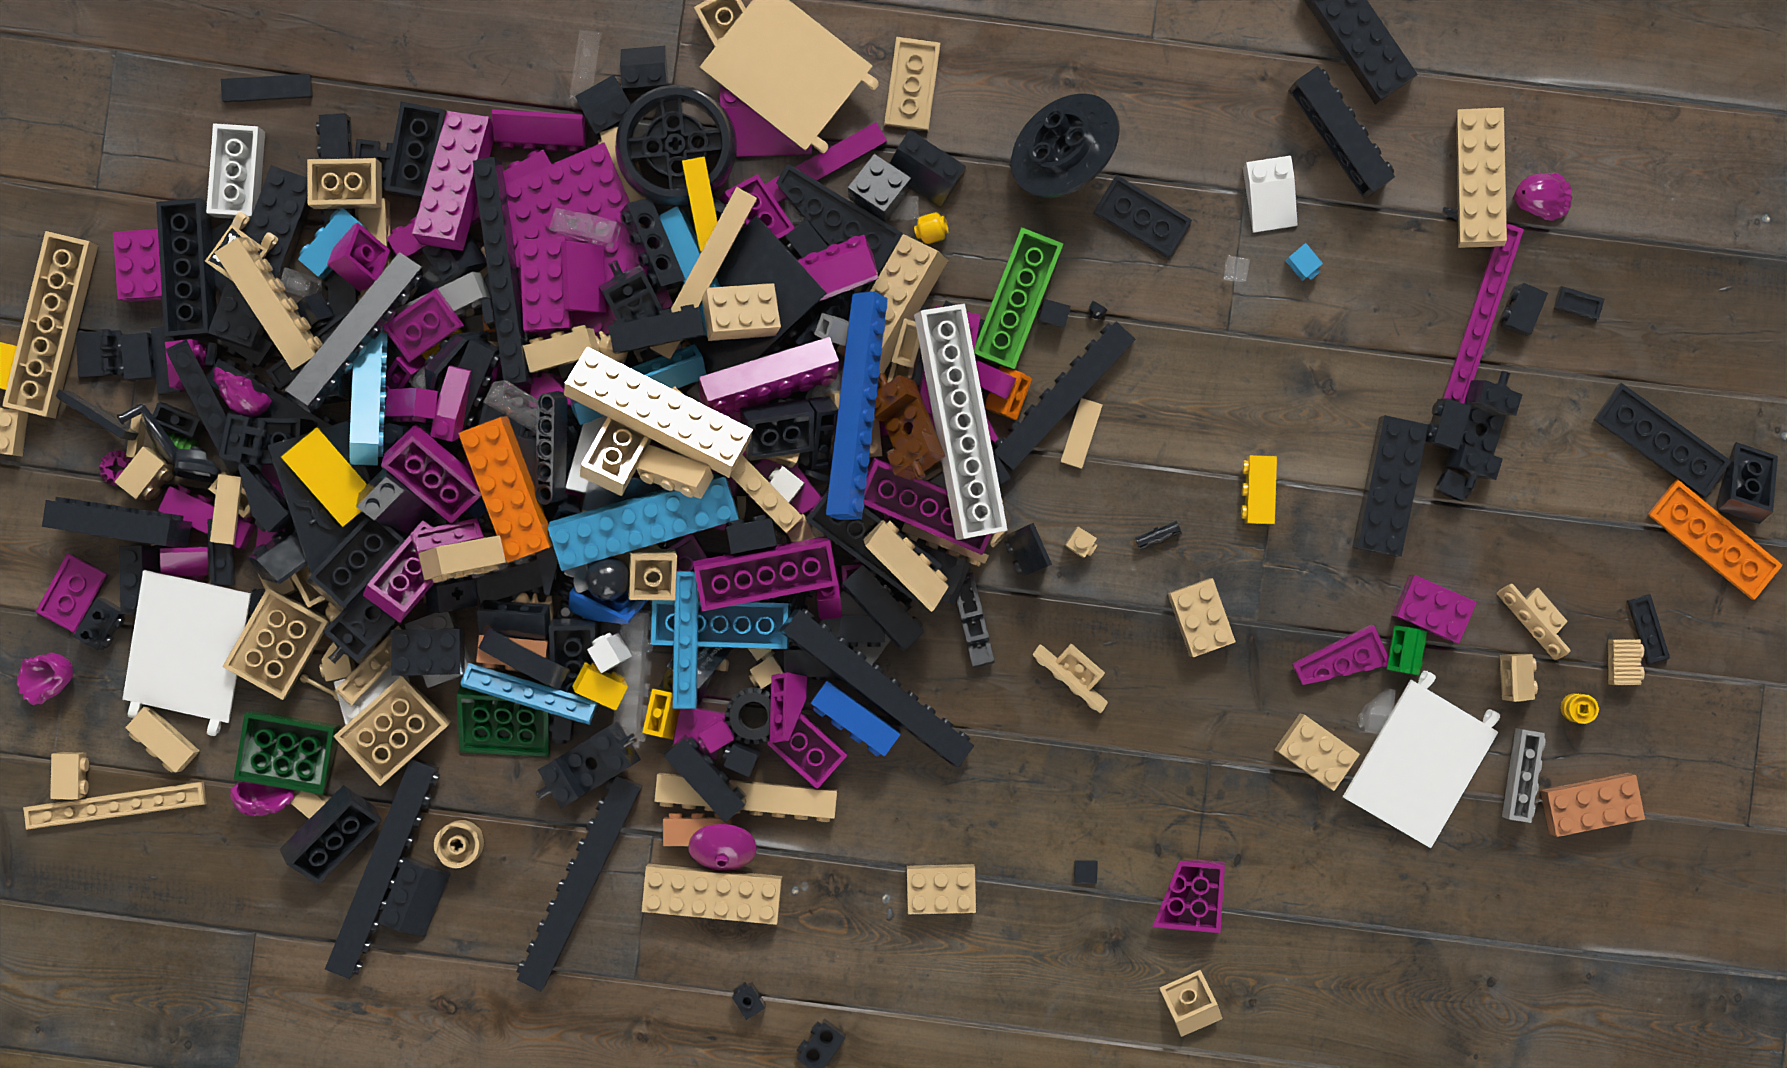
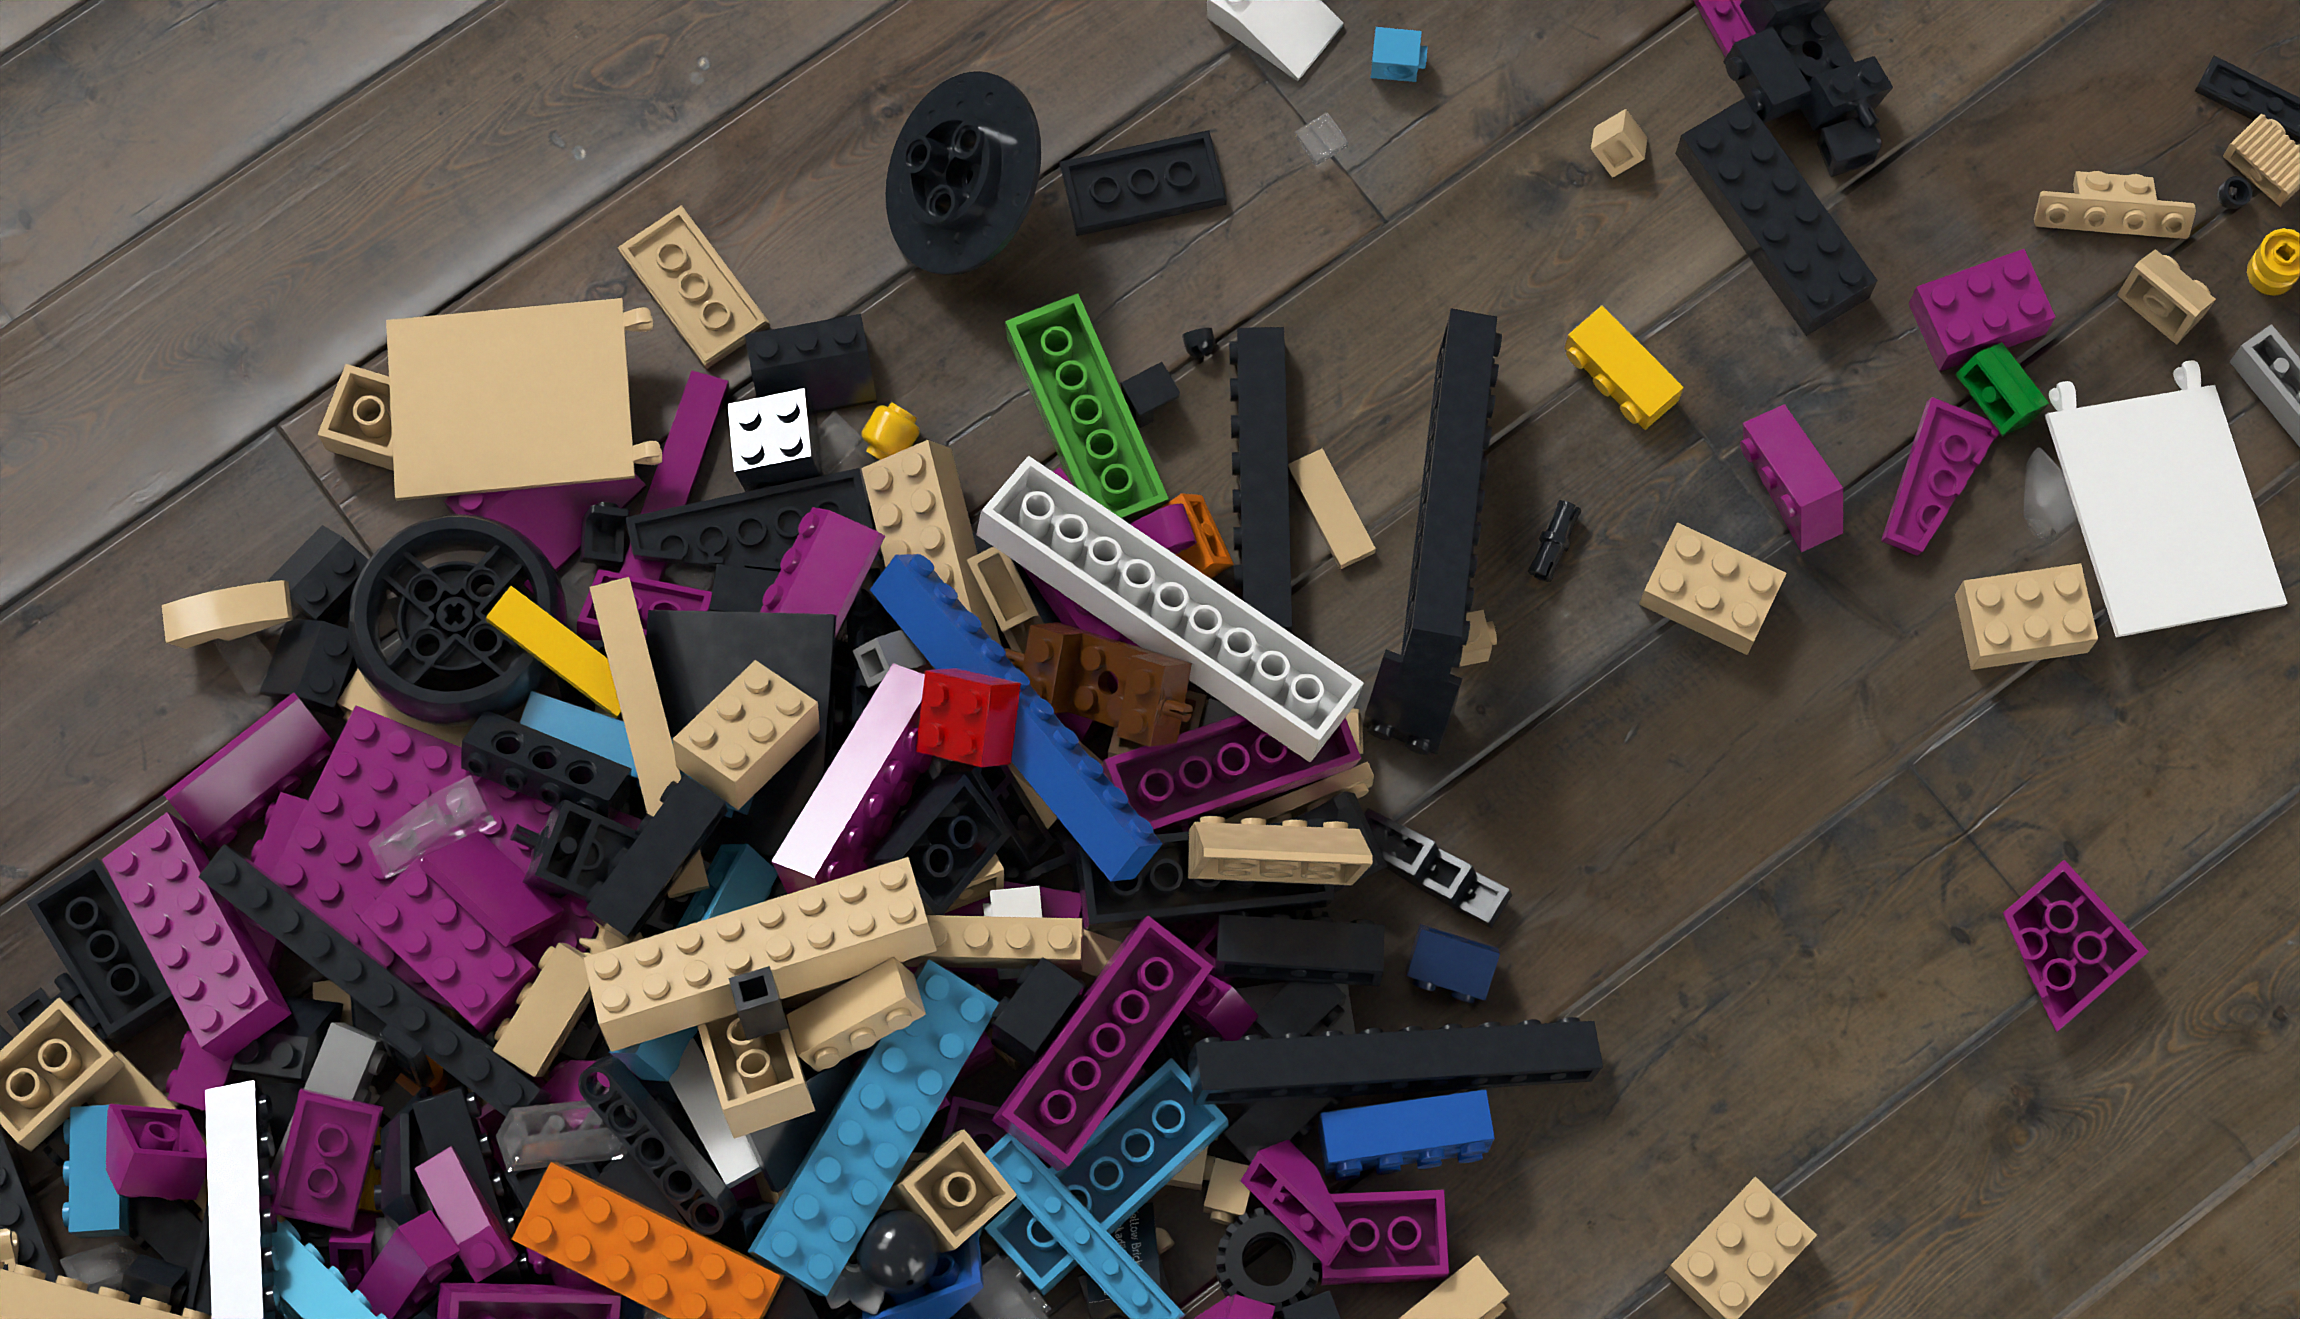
camera: 40 degrees left, 15 degrees down
(589, 50) = (226, 613): none -> tan slope
(635, 434) = (758, 1003): none -> black brick
(773, 161) = (603, 534): none -> black bracket
(835, 390) = (968, 717): none -> red brick
(942, 668) = (1452, 964): none -> dark blue brick
(1075, 671) = (1626, 803): tan bracket -> none
(1085, 871) = (1899, 1050): black tile -> none
(1126, 482) = (1451, 497): none -> black brick
(1191, 1003) = (2207, 1087): tan slope -> none
(1282, 603) = (1795, 477): none -> magenta wedge
(1358, 391) = (1619, 143): none -> tan panel
(1595, 664) = (2240, 194): none -> black hinge

